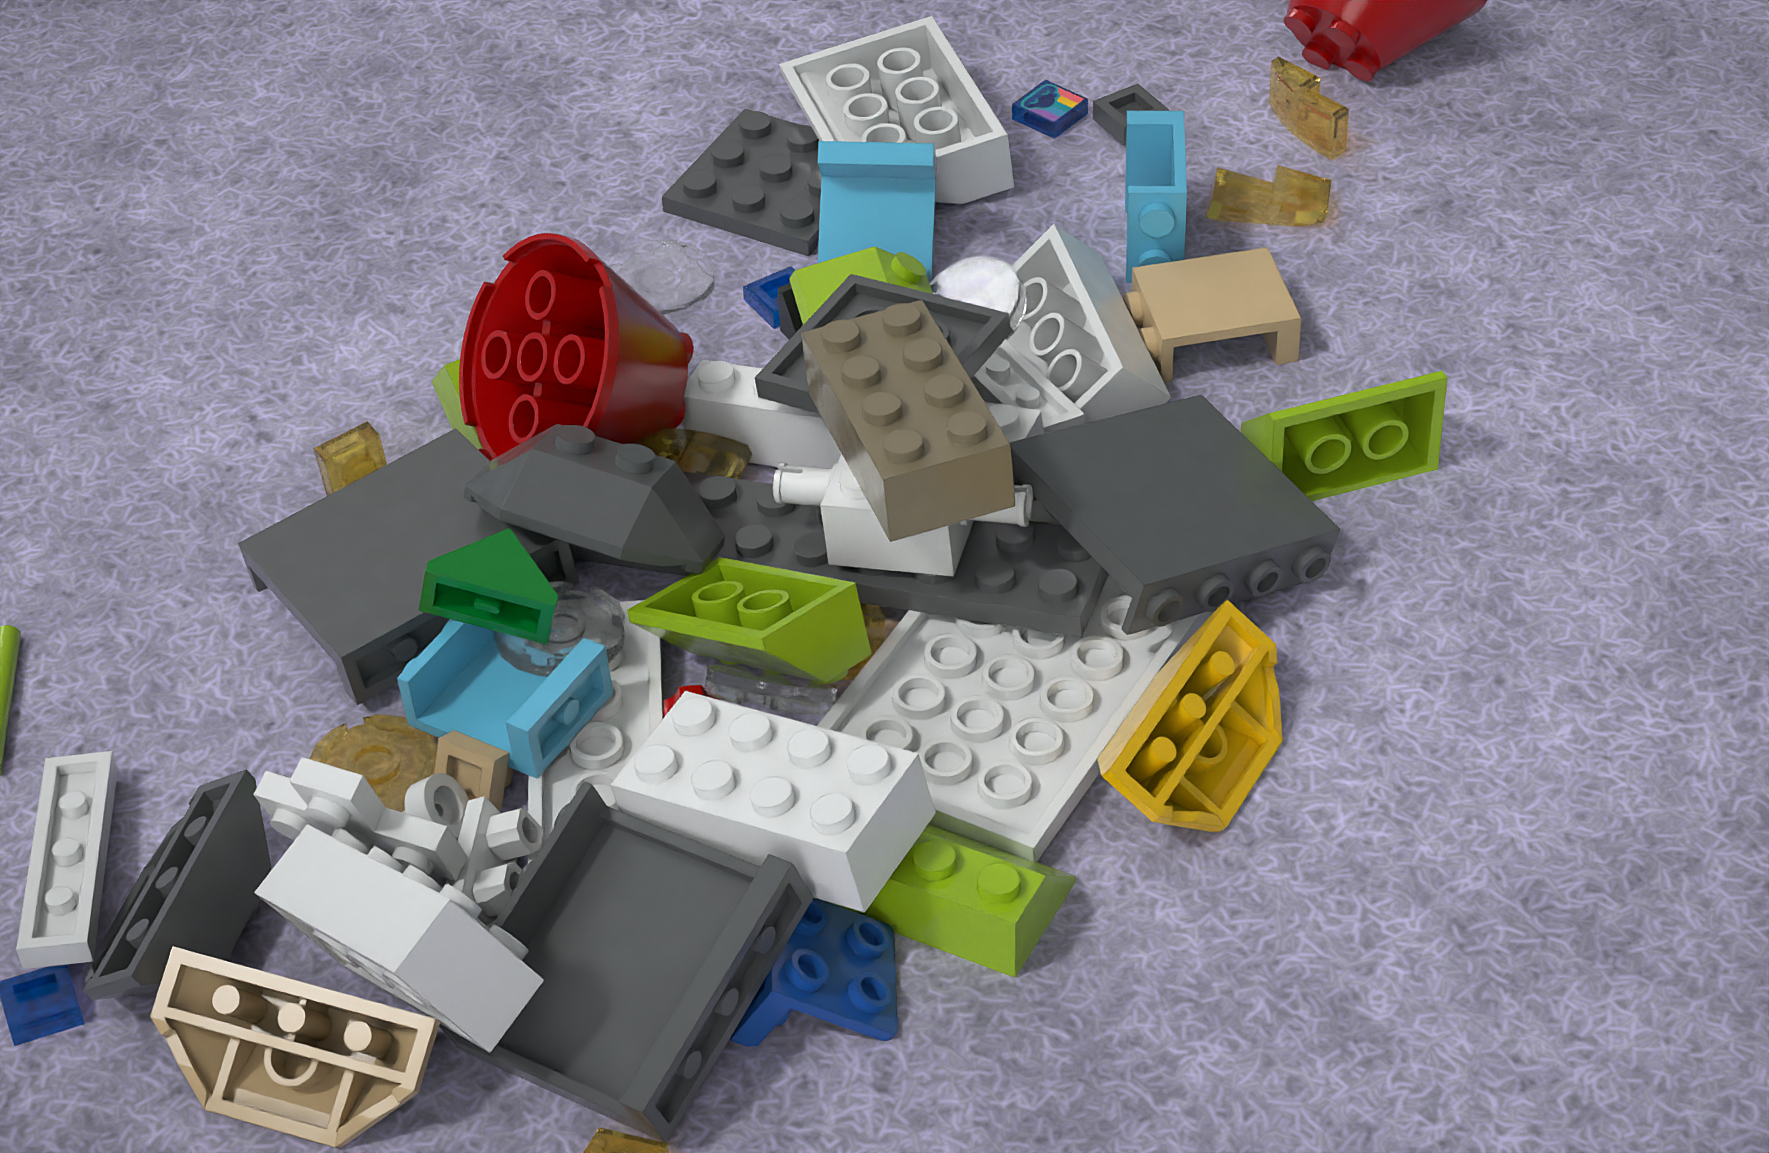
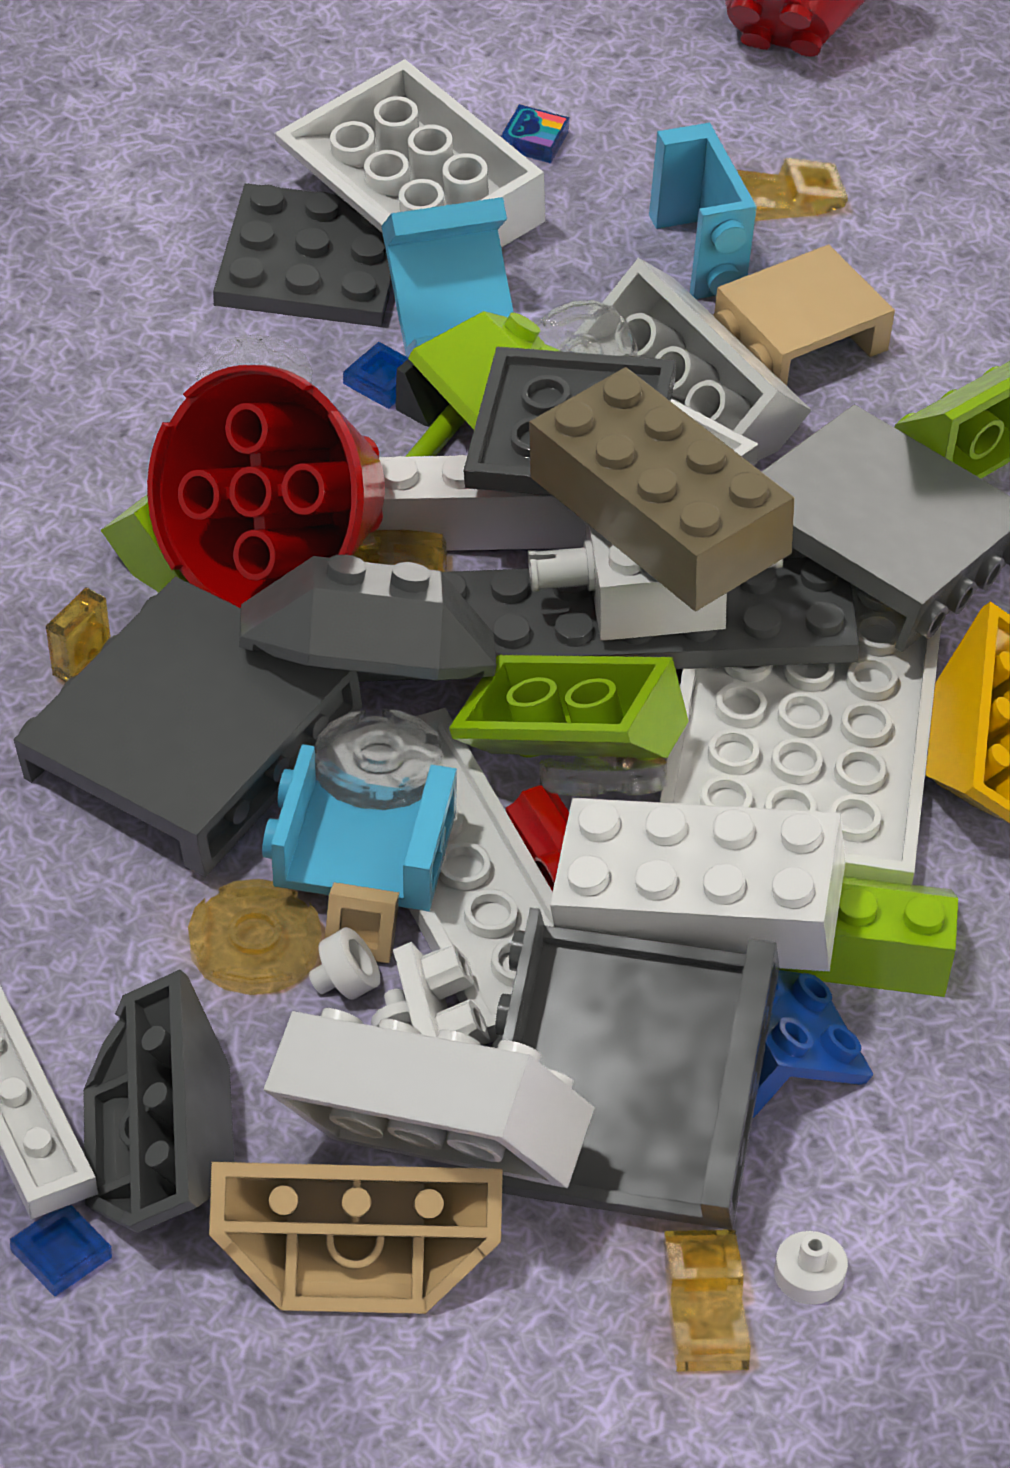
camera: 25 degrees left, 5 degrees up
(345, 800) = (309, 983): white plate -> none
(492, 588) = (333, 735): green slope -> none
(1112, 109) = (618, 127): dark grey plate -> none
(1305, 112) = (767, 91): clear yellow slope -> none

